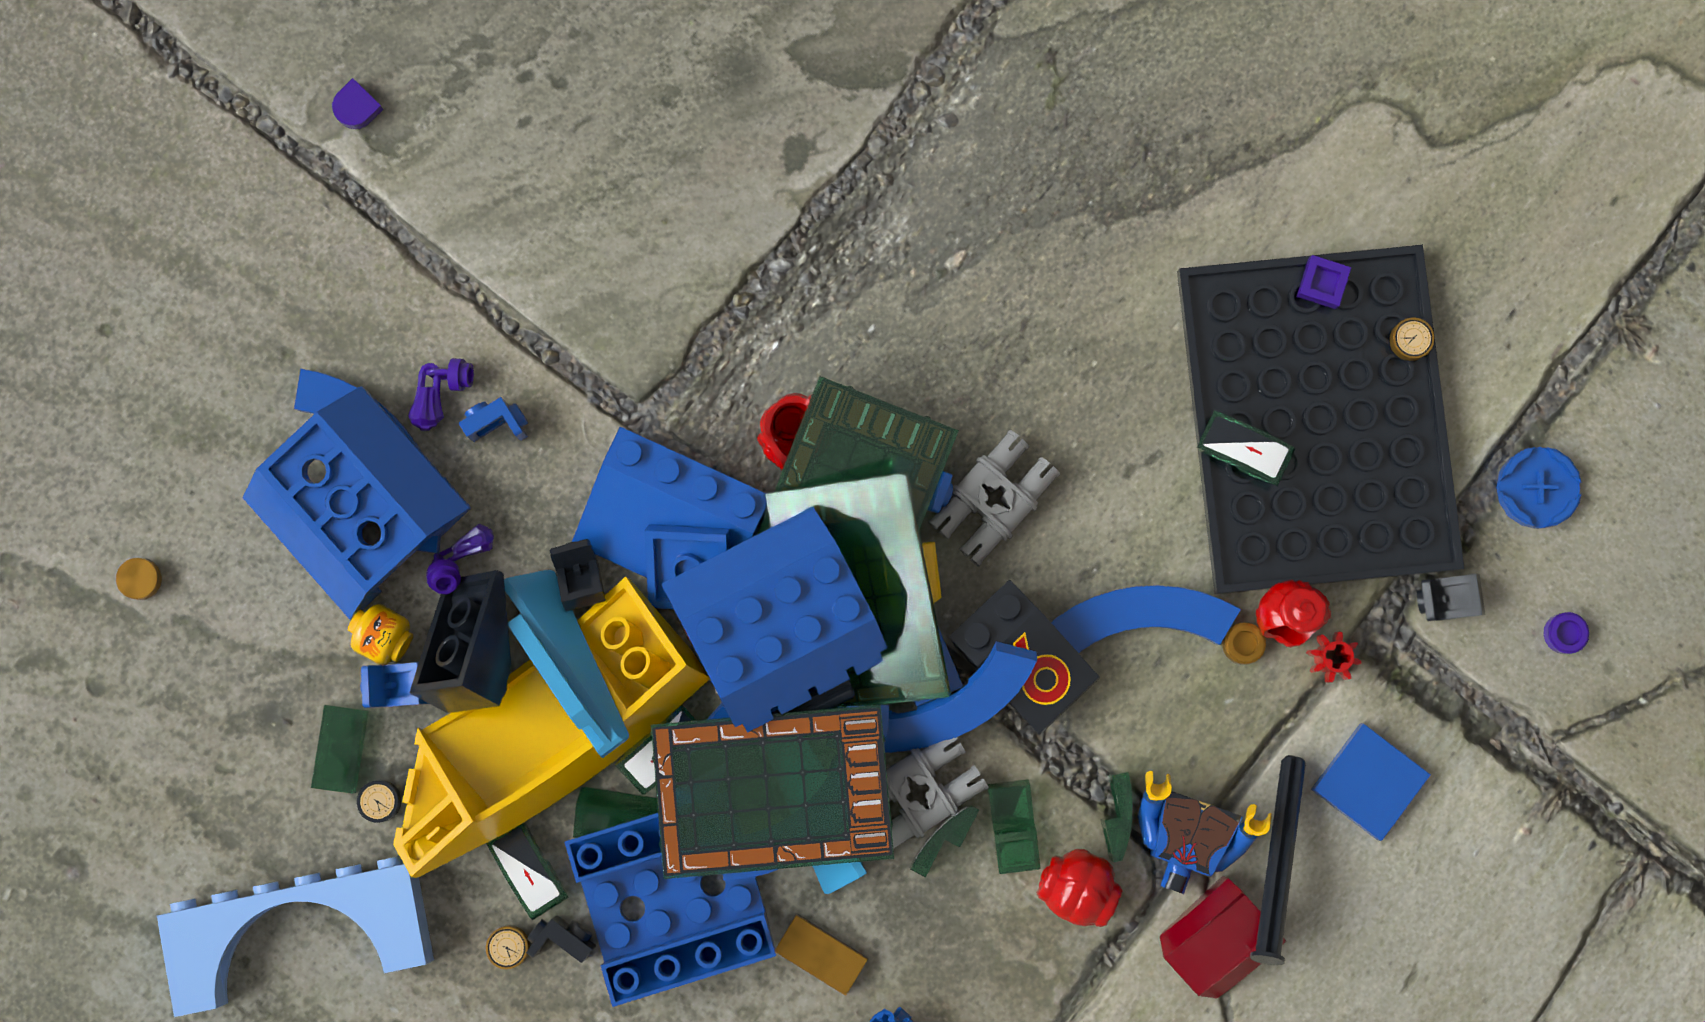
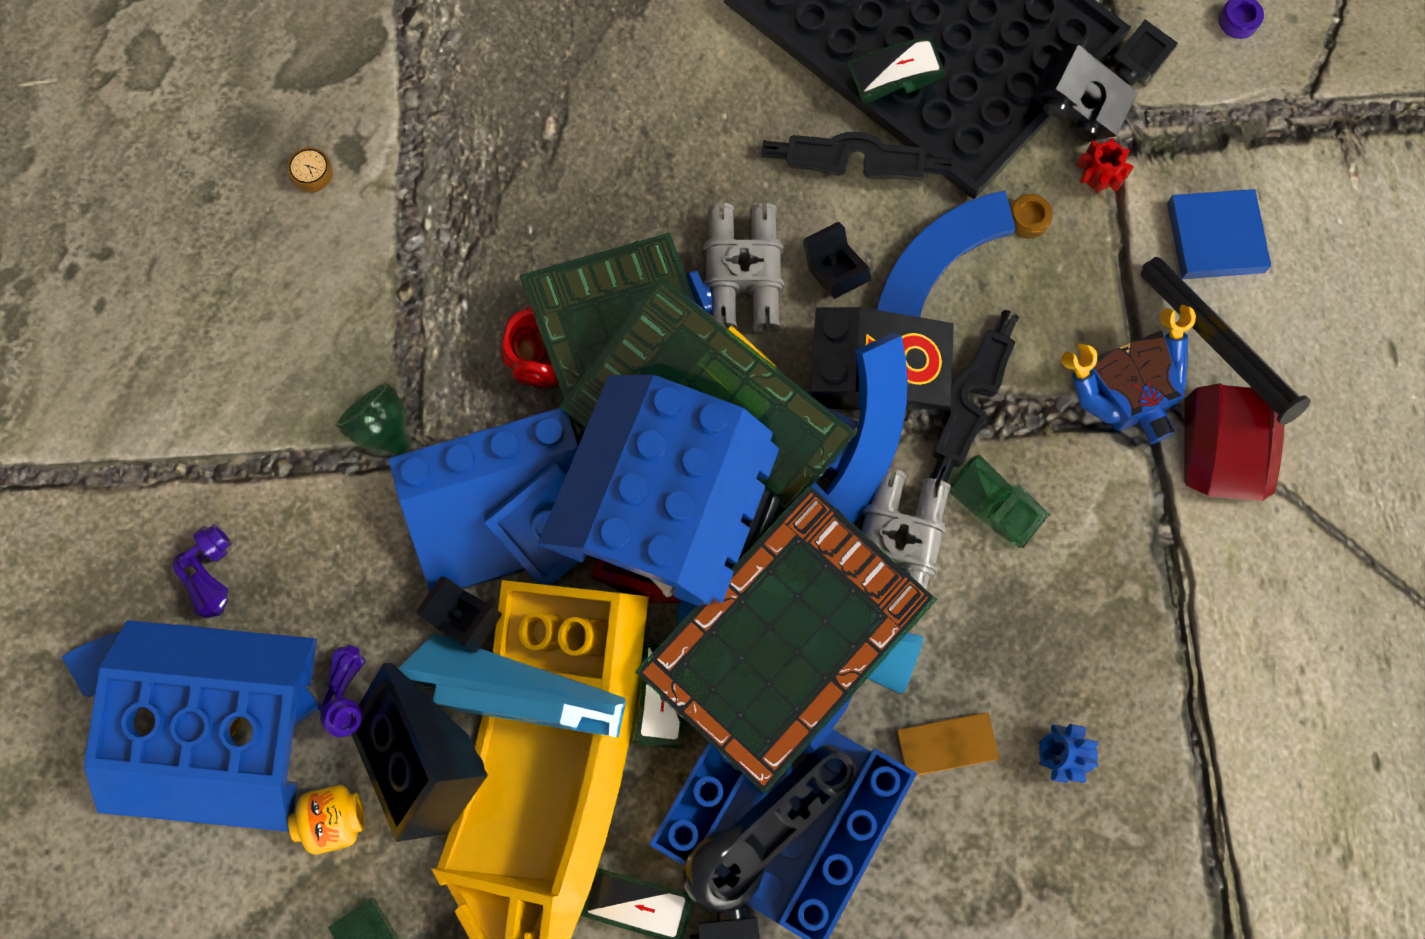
camera: 45 degrees left, 10 degrees down
(388, 685) = (374, 855): blue bracket -> none
(487, 417) = (267, 555): blue bracket -> none
(604, 809) = (658, 789): clear green slope -> none
(638, 384) = (377, 421): none -> clear green helmet
(644, 901) = (762, 834): none -> black beam
(754, 144) = (310, 169): none -> tile
(952, 830) = (954, 547): clear green slope -> none
(1063, 553) = (834, 261): none -> black bracket
(1080, 888) = (1096, 498): red hair -> none
(1090, 731) = (982, 378): none -> black piece
(1118, 827) = (1079, 428): clear green slope -> none
(1169, 503) = (879, 161): none -> black piece
(1292, 612) = (1046, 153): red hair -> none
(1377, 610) = (1084, 93): none -> brick

